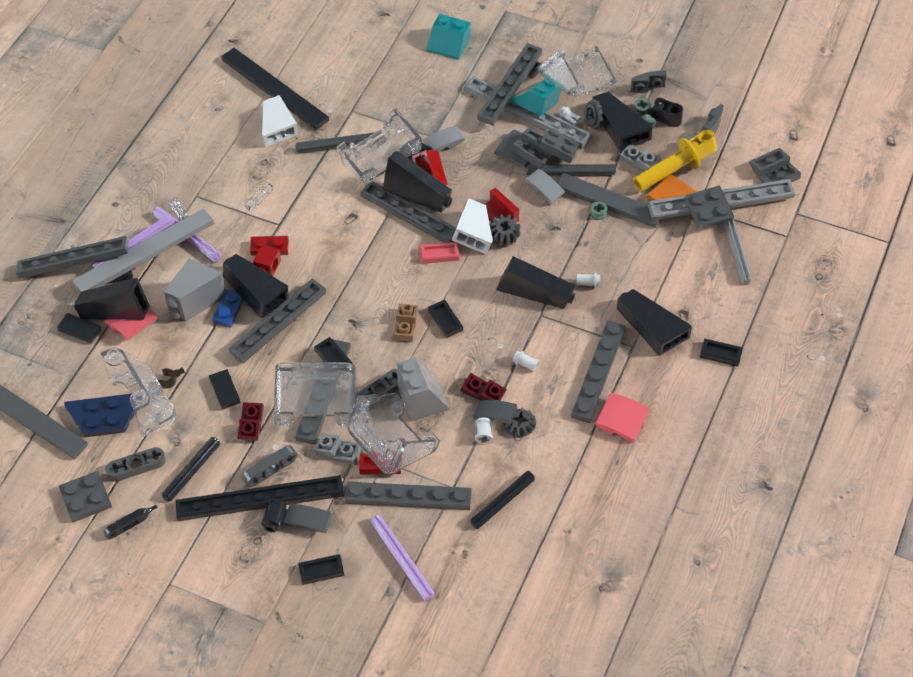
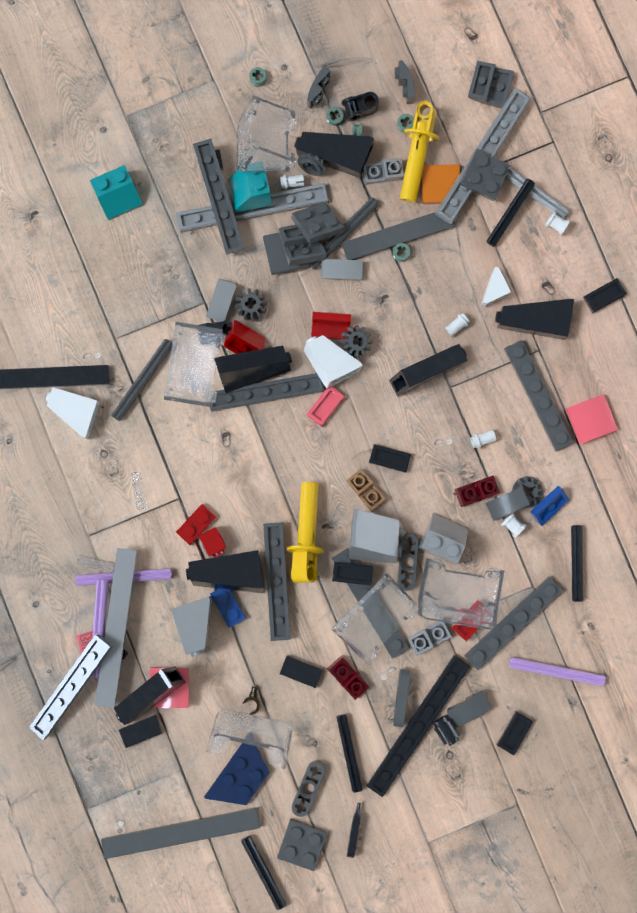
camera: 50 degrees left, 30 degrees up
(37, 488) = (263, 872): none -> black axle
(320, 313) = (306, 553): none -> yellow piece
(373, 343) = (374, 537): none -> light grey slope
(459, 156) = (257, 308): none -> dark grey gear
(525, 442) = (549, 505): none -> blue plate
(617, 53) = (258, 83): none -> sand green bush
(639, 279) = (496, 288): none -> white slope
(704, 246) = (510, 212): none -> black axle
(732, 276) = (557, 223): none -> white bush

